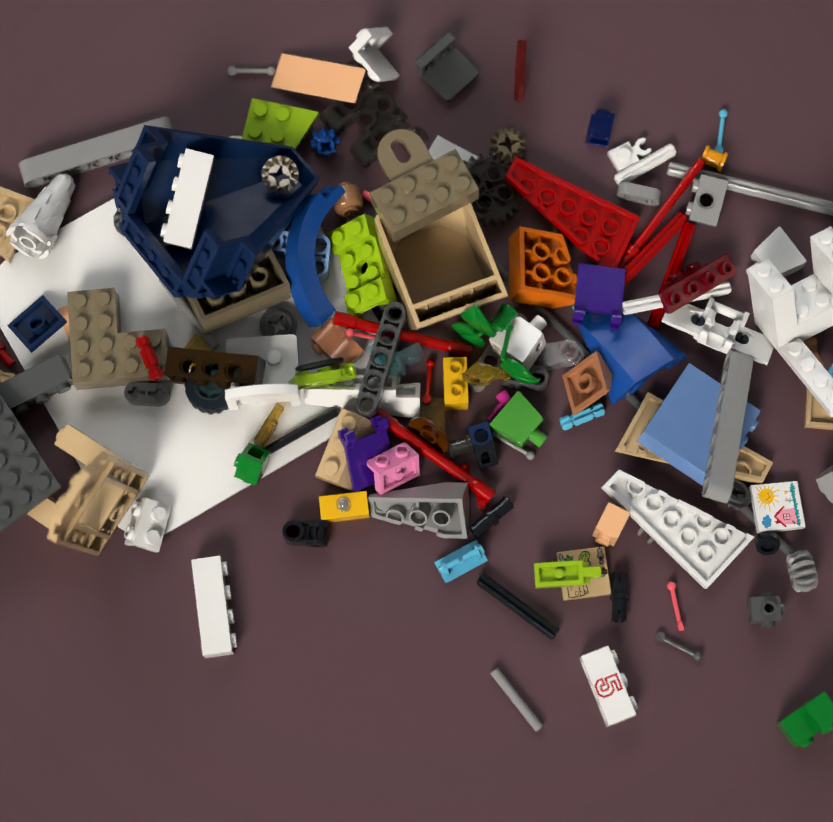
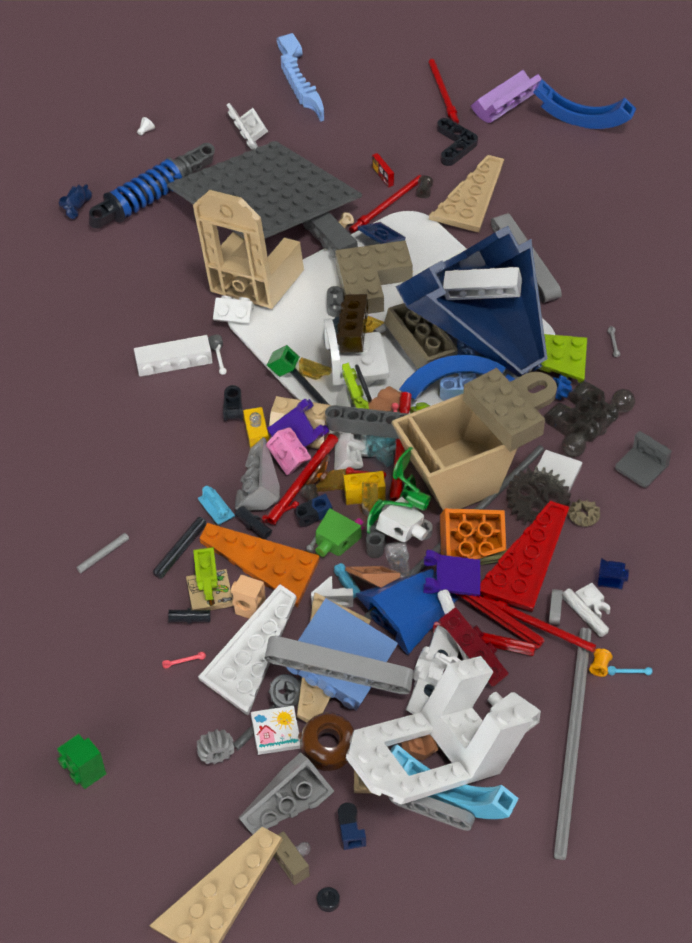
camera: 85 degrees right, 25 degrees down
(38, 225) = (461, 225): white cone -> none
(149, 358) = (357, 284): red axle -> none
(197, 550) = (216, 344): none -> hinge
(274, 316) = (395, 366): dark grey gear -> none
(289, 169) = (523, 350): dark tan gear -> none
(318, 78) = (613, 377): light nougat sticker -> none
(367, 53) = (641, 408): white bracket -> none
(520, 64) = (650, 506): clear red tile -> none
(549, 500) = (263, 559): none -> orange wing
(604, 439) = (341, 596): none -> white slope
(608, 686) = (112, 610): white brick -> none
(660, 637) = (156, 652): dark grey hinge -> none
(716, 189) = (556, 656): light grey brick -> none
(757, 613) = (179, 720): dark grey brick -> none
(767, 543) = (241, 722): black tile -> none
(788, 461) = (320, 756): none -> reddish brown piece

